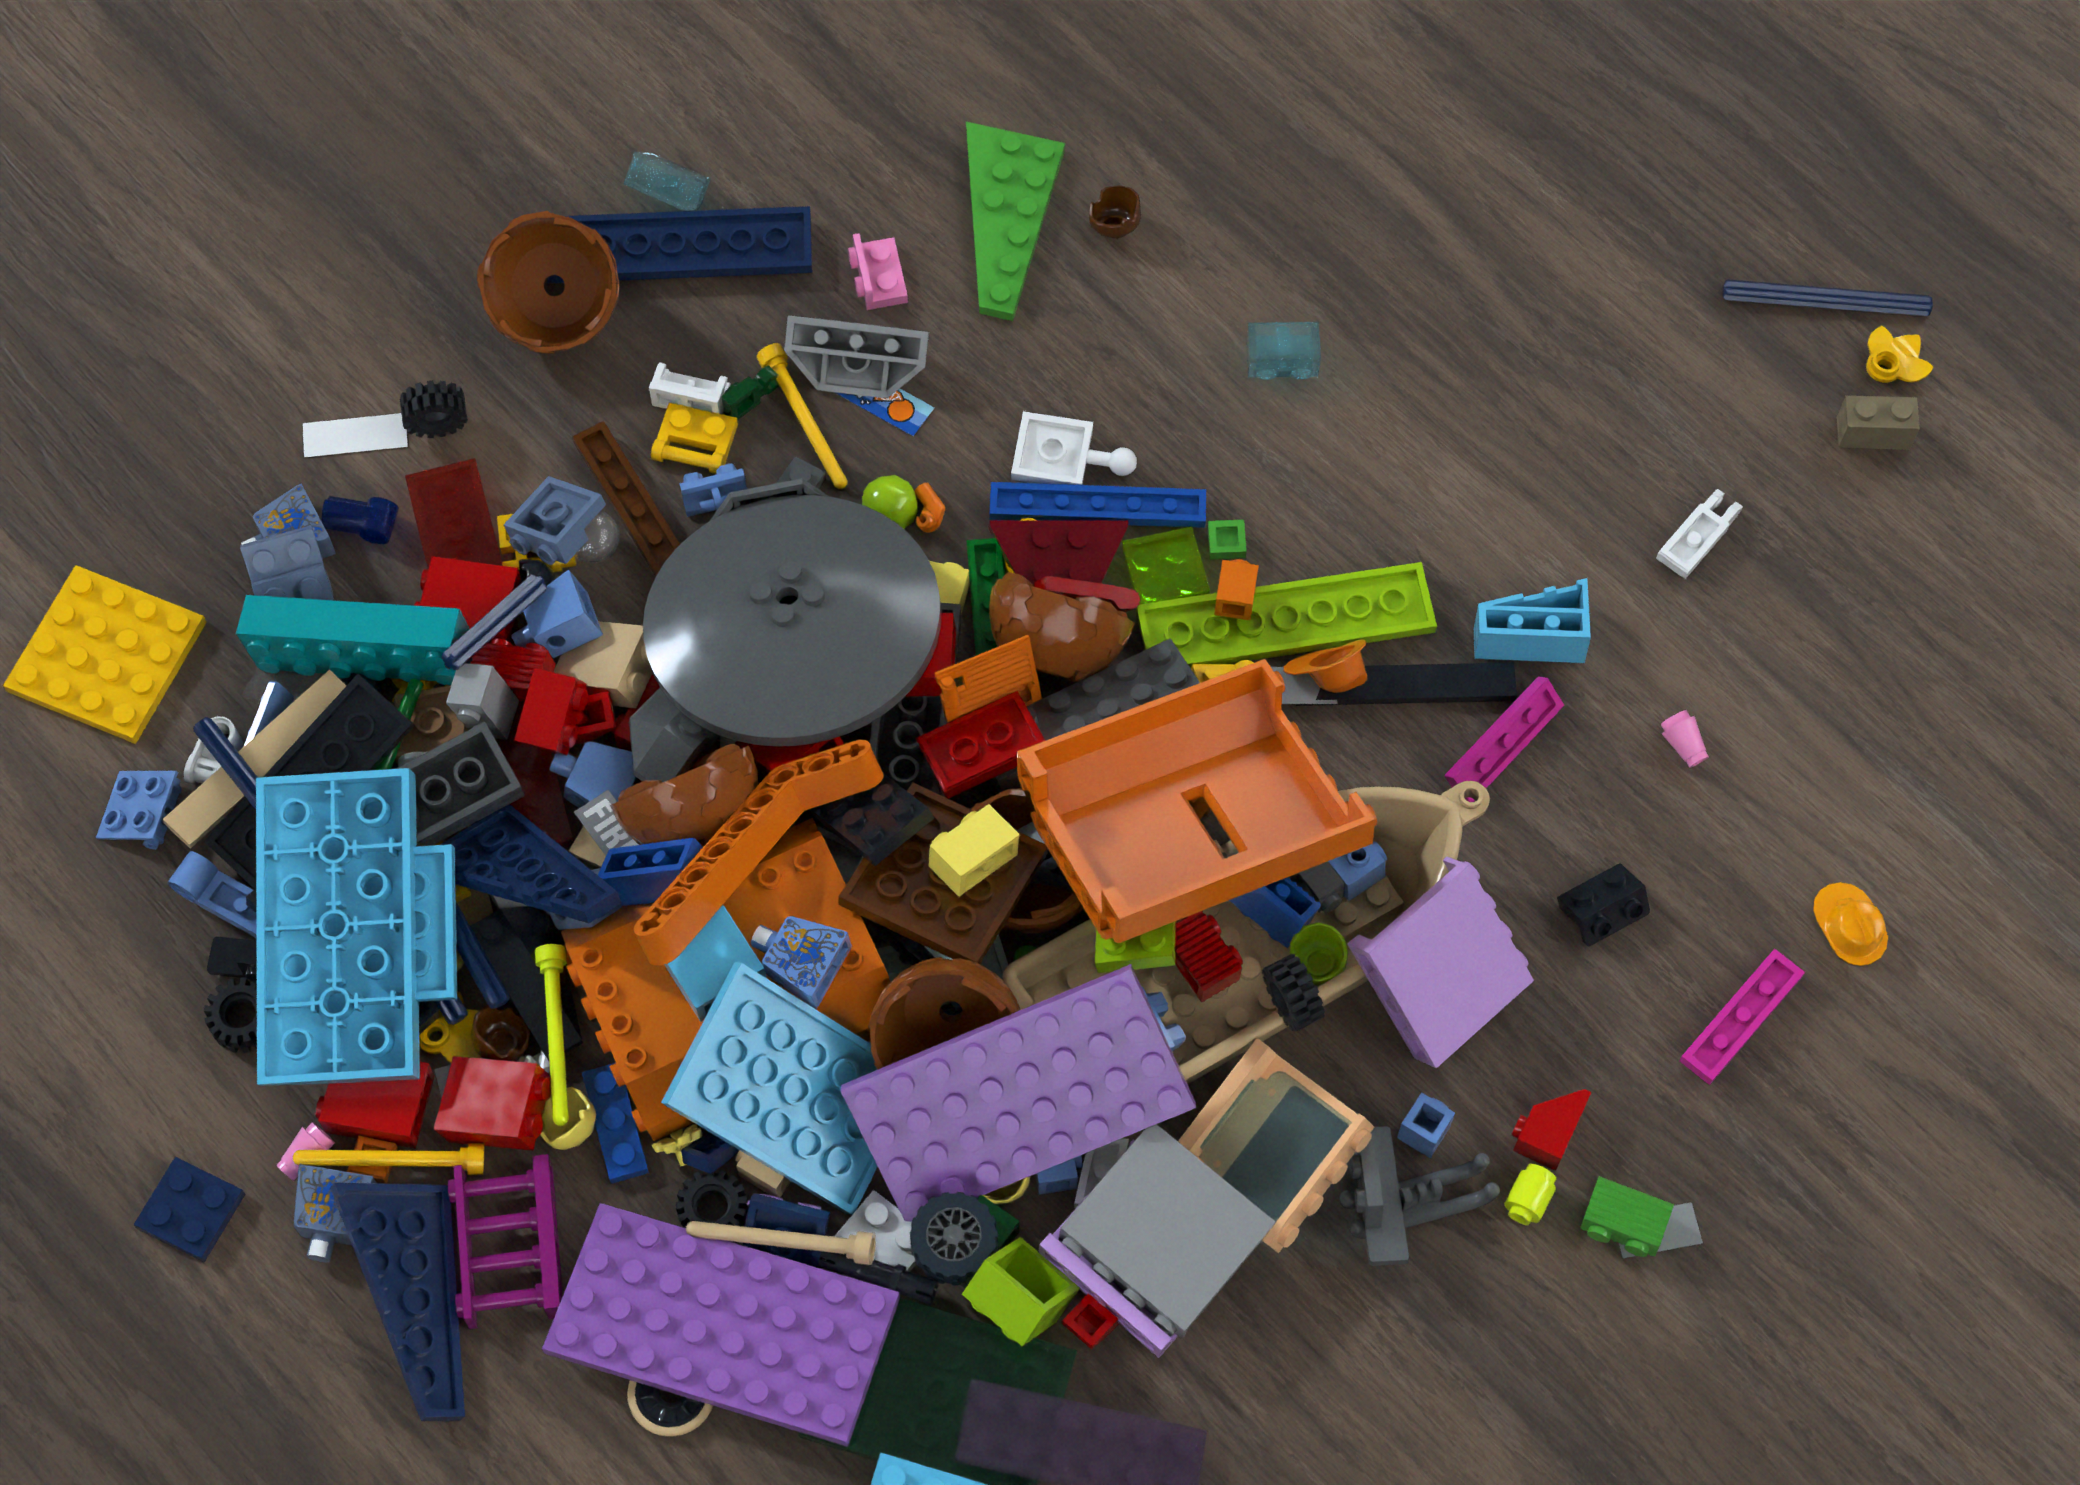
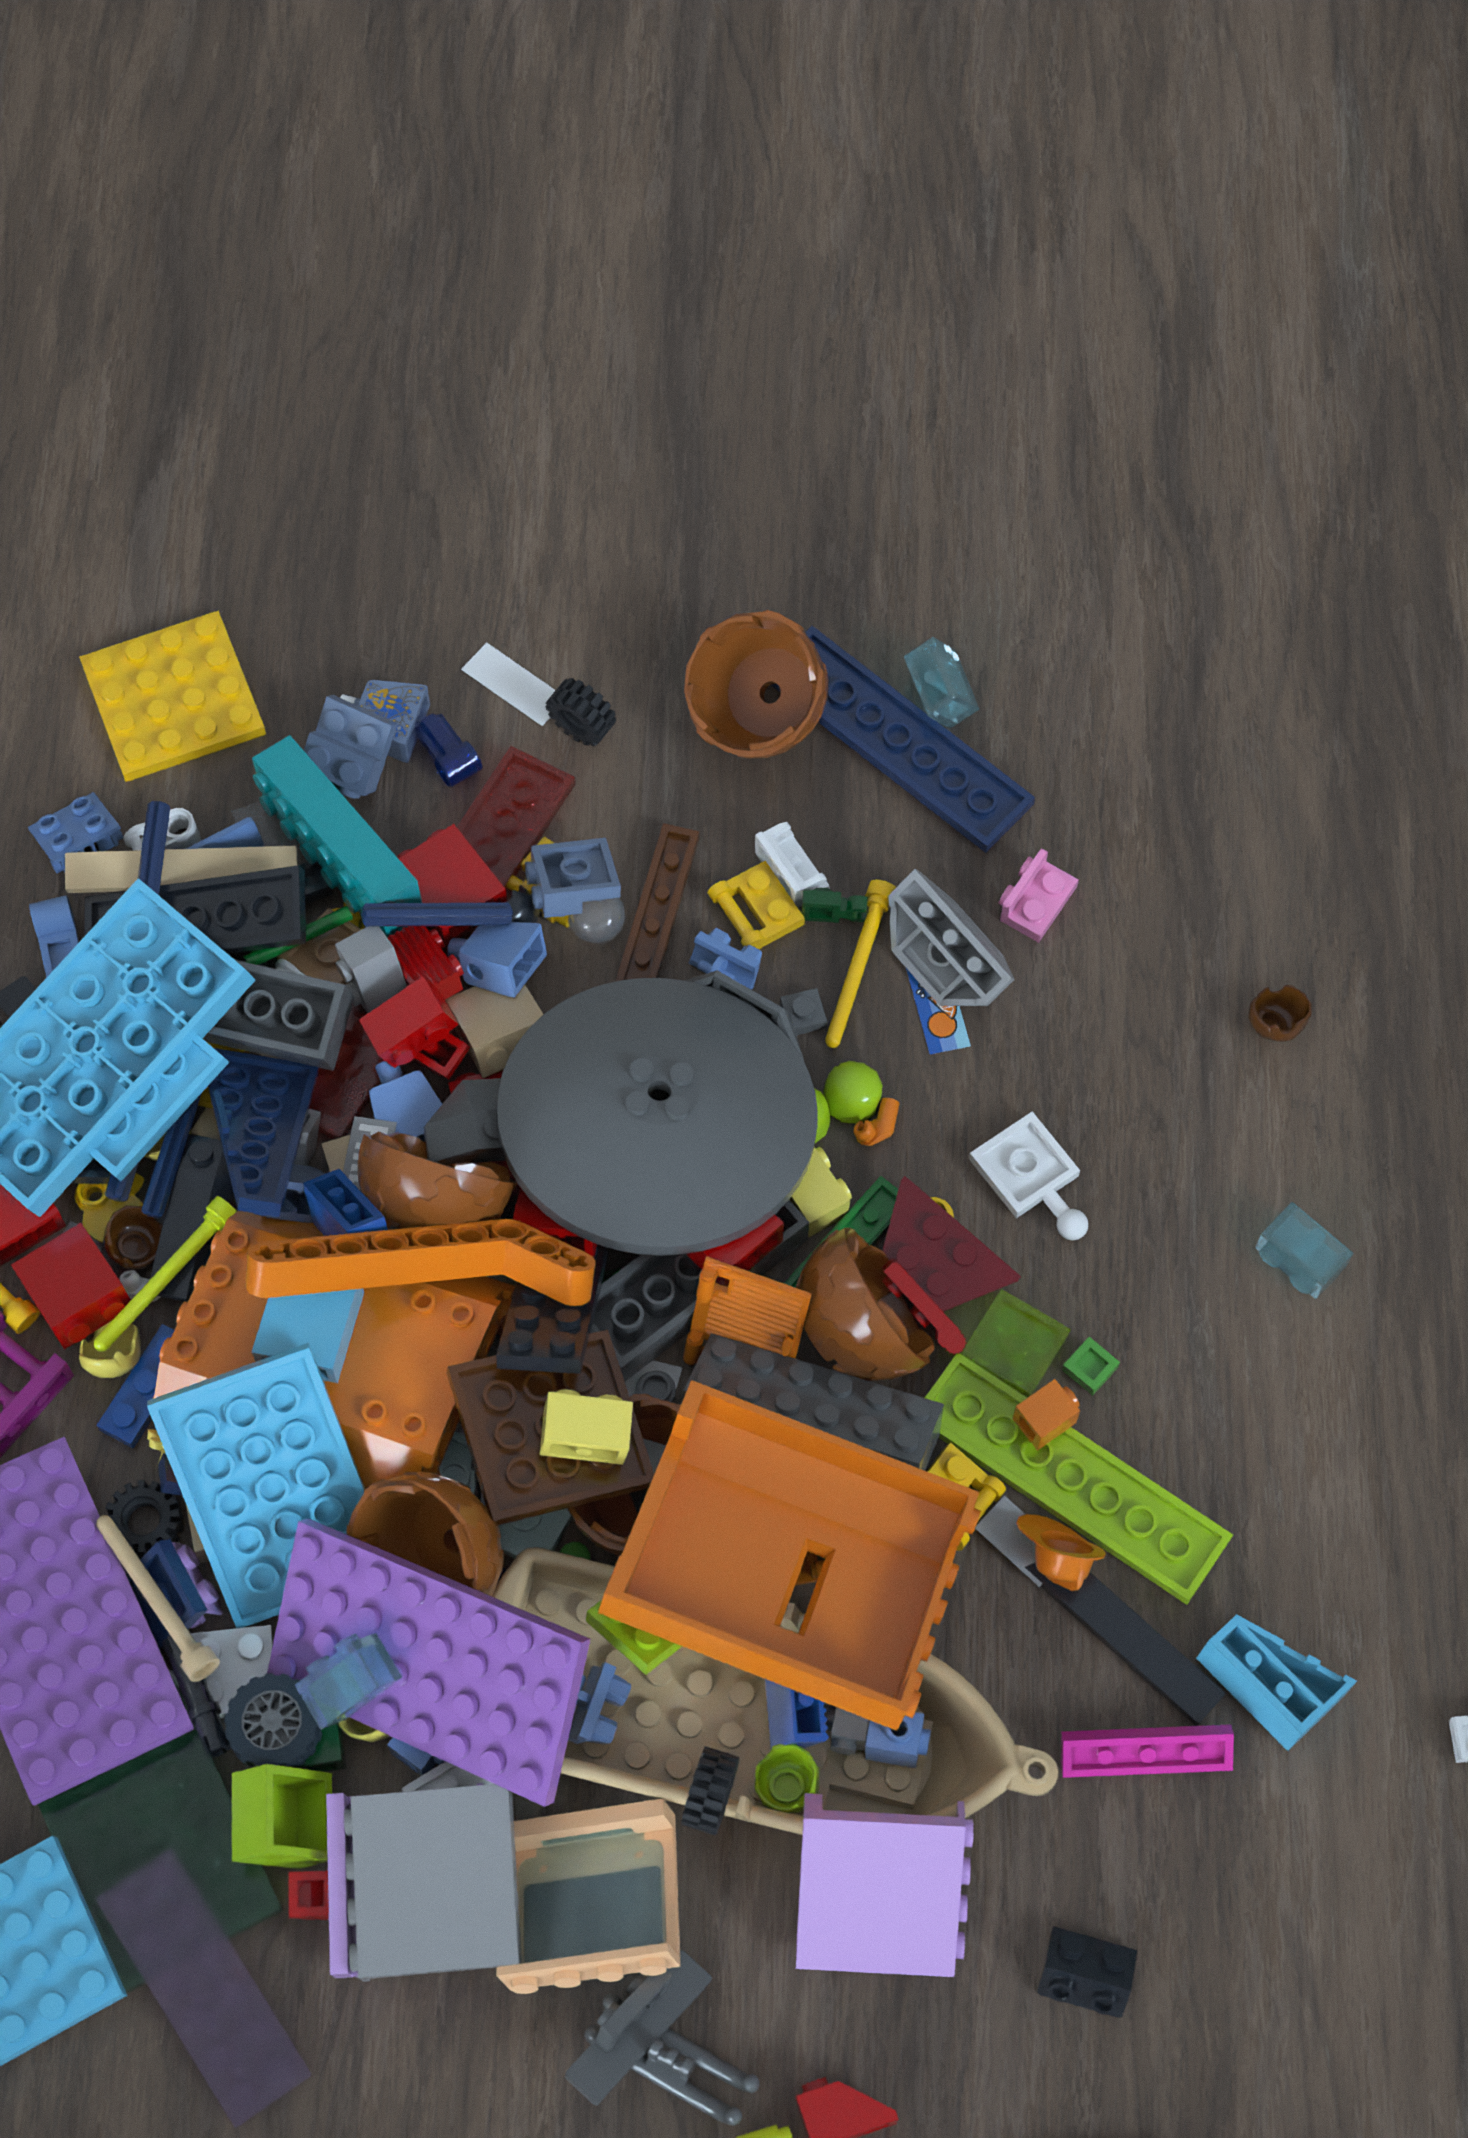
camera: 45 degrees right, 0 degrees up
(802, 956) = (371, 1389): medium blue torso -> none
(979, 744) = (700, 1347): red tile -> none
(981, 1157) = (348, 1679): none -> clear light blue brick
(1009, 200) = (1209, 926): bright green wing -> none
(1099, 503) = (1016, 1242): blue plate -> none
(1204, 956) = (694, 1693): red brick -> none
(1426, 1125) = (738, 2006): medium blue brick -> none
(1685, 738) = (1307, 1899): bright pink cone -> none

